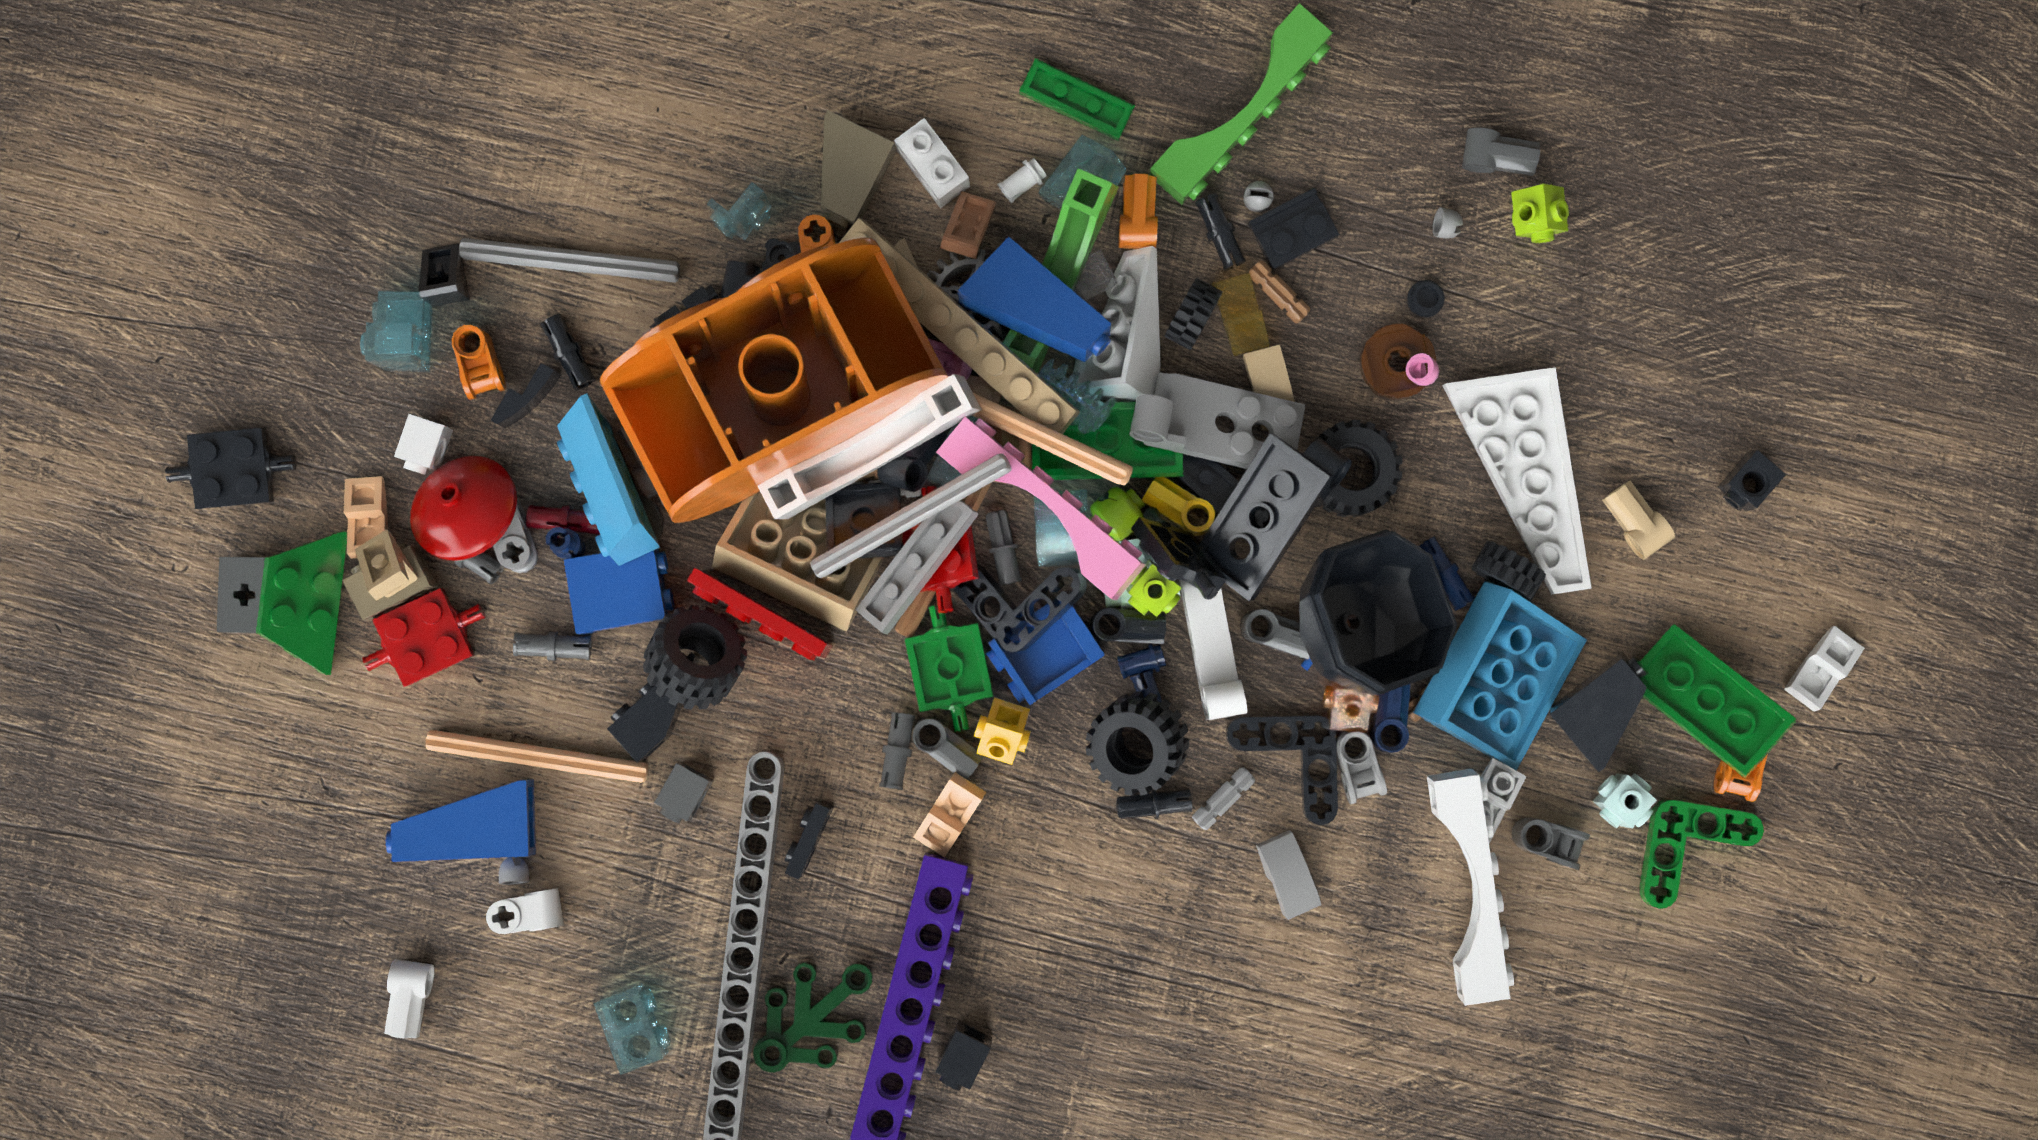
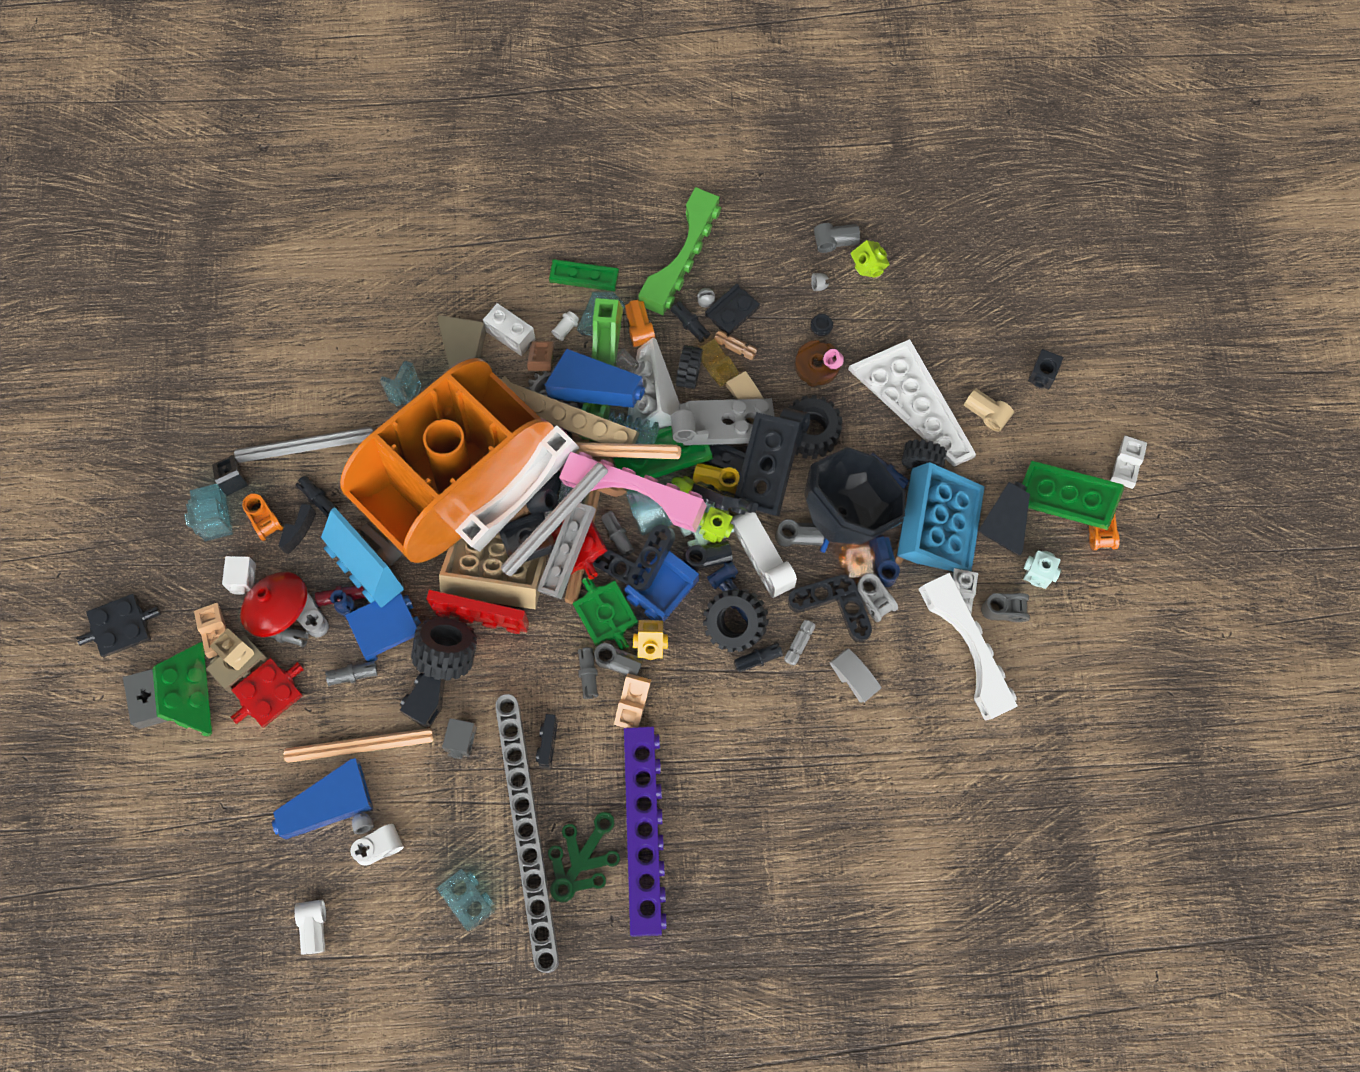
camera: 20 degrees left, 15 degrees down
(963, 1056) = (687, 847): black brick -> none
(1687, 827) = (1083, 577): green beam -> none

